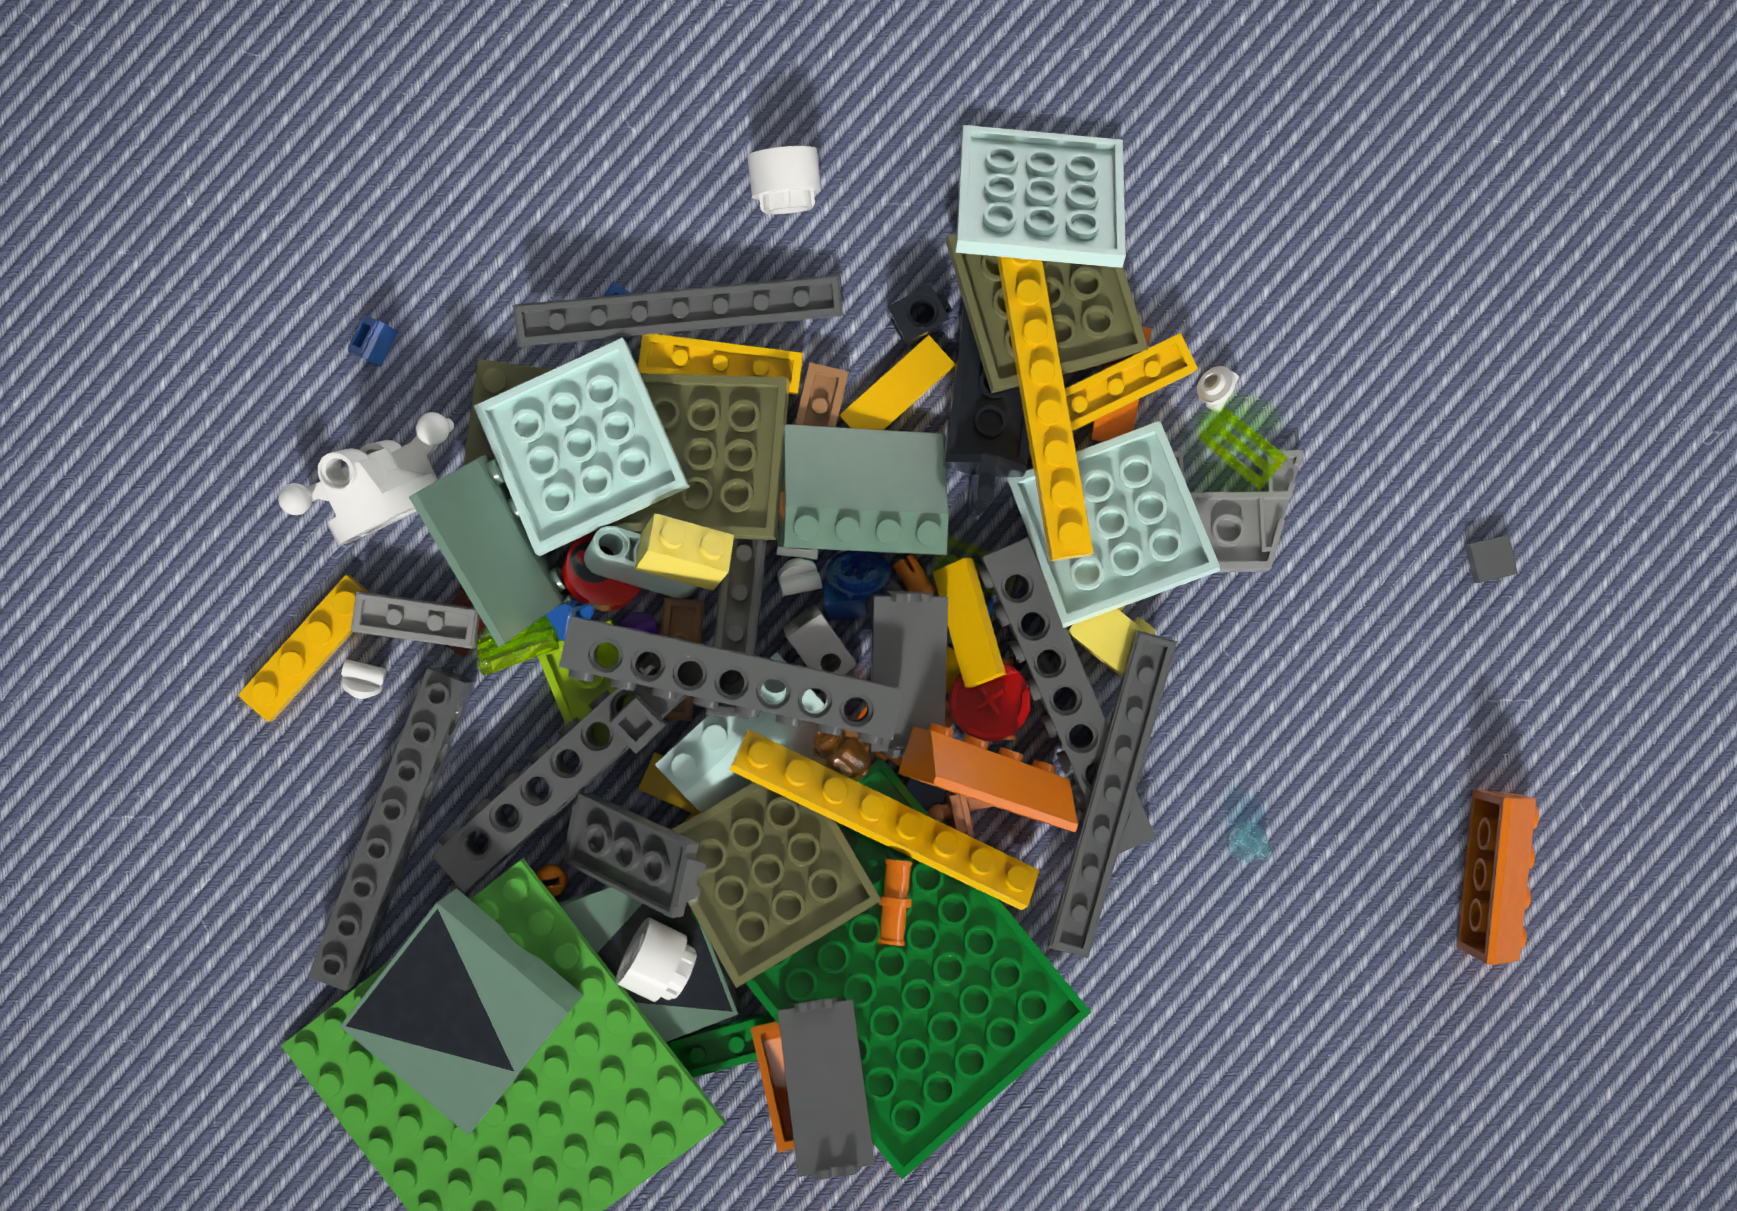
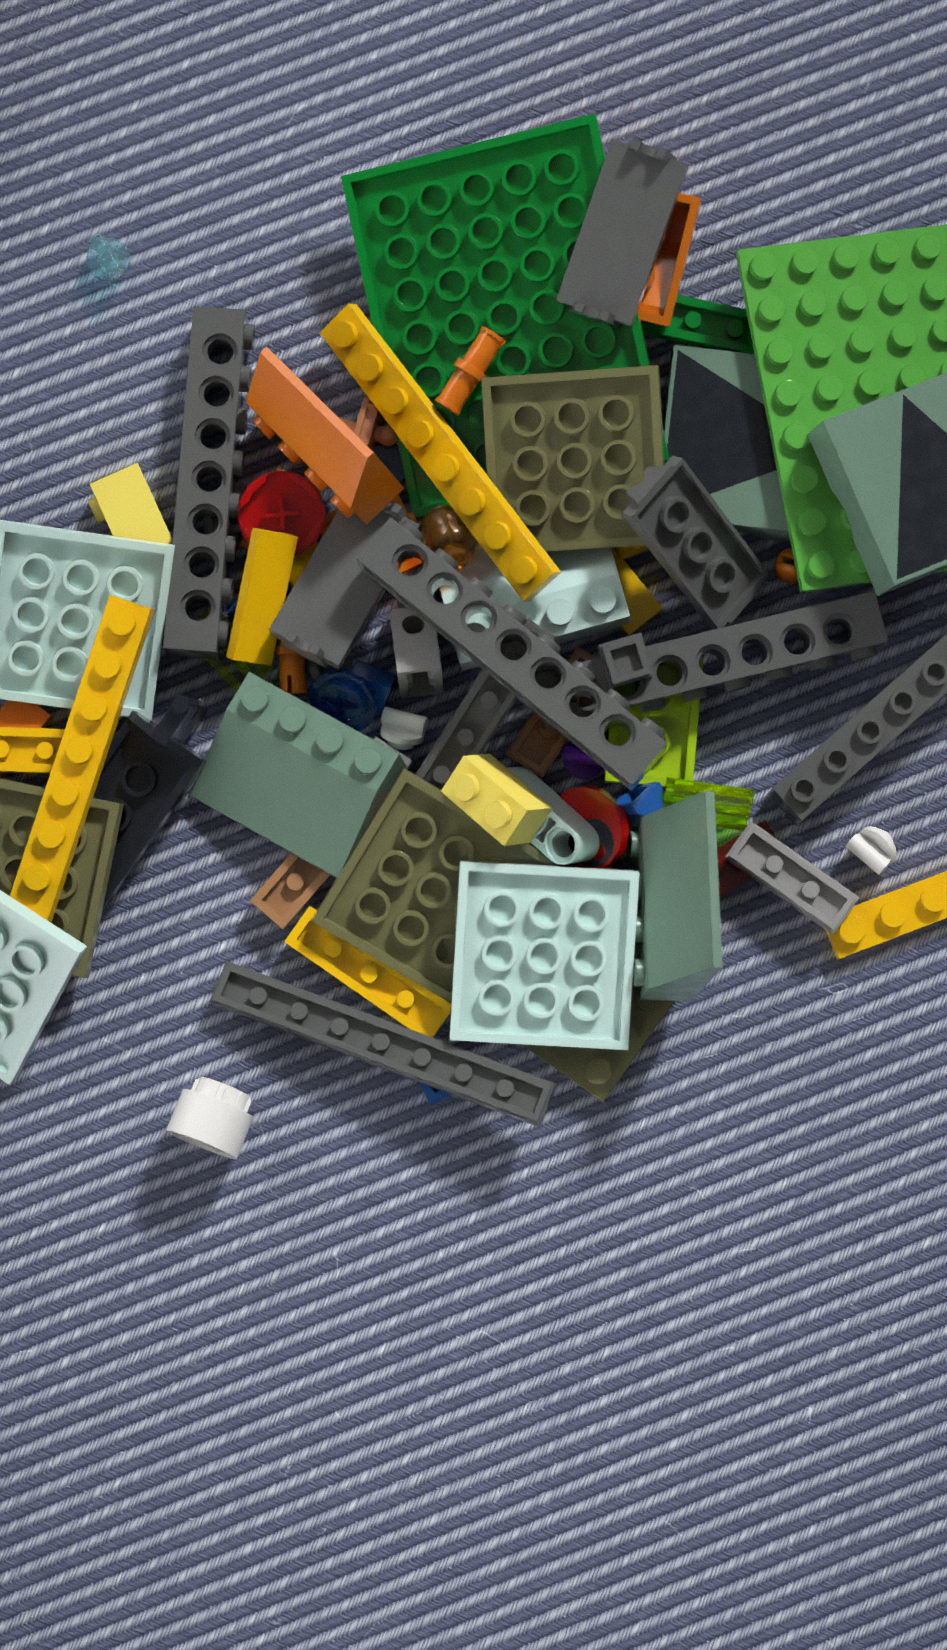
camera: 150 degrees left, 5 degrees down
(372, 340) = (699, 1177): blue slope -> none
(375, 484) = (760, 1011): white piece -> none
(656, 962) = (722, 429): white piece -> none
(899, 387) = (209, 862): yellow tile -> none
(911, 331) = (171, 923): black brick -> none
(1111, 793) = (212, 367): dark grey tile -> none

